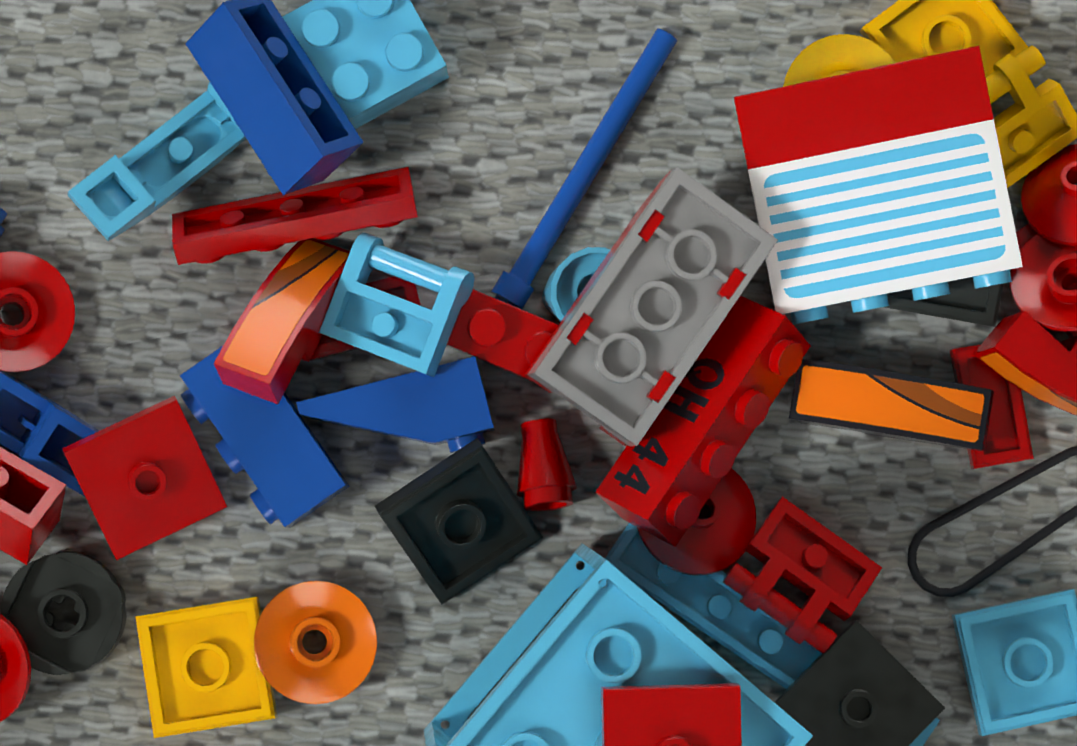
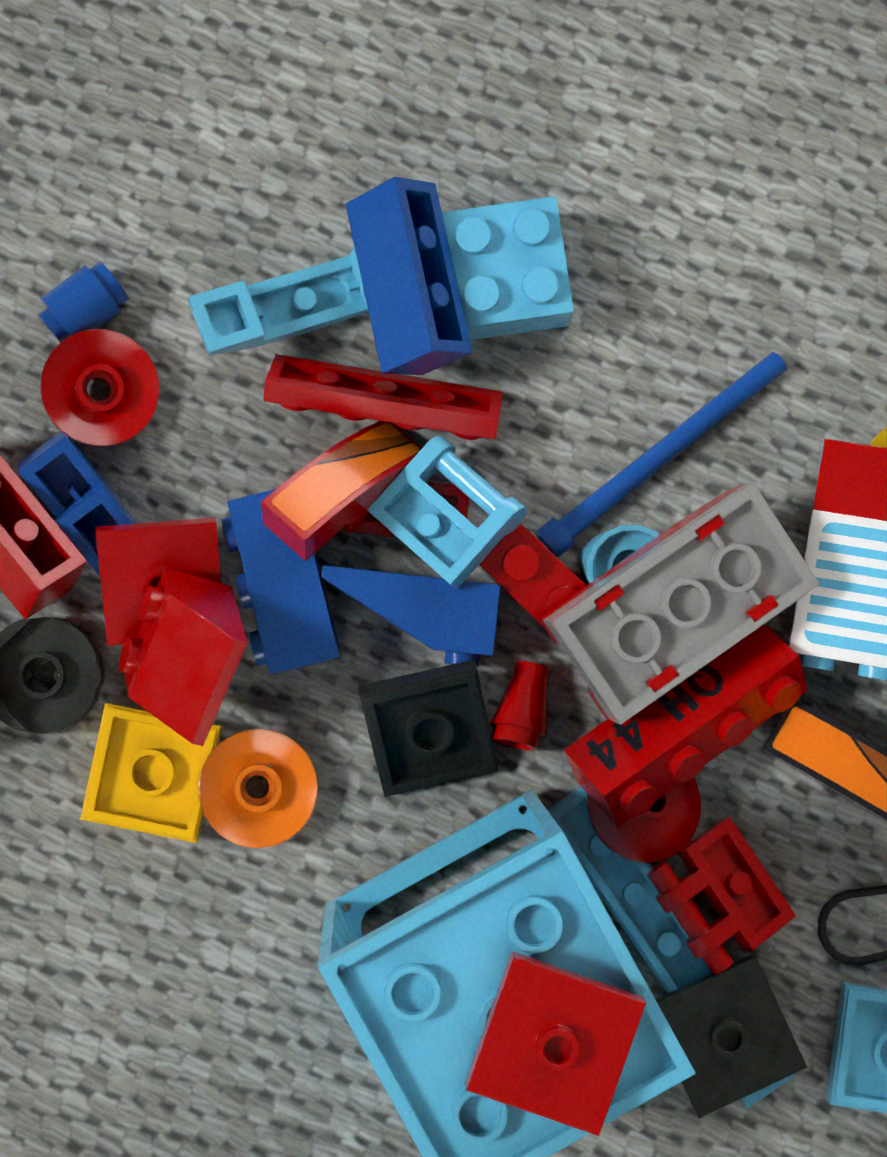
camera: 15 degrees right, 0 degrees up
(194, 536) = (184, 652): none -> red slope

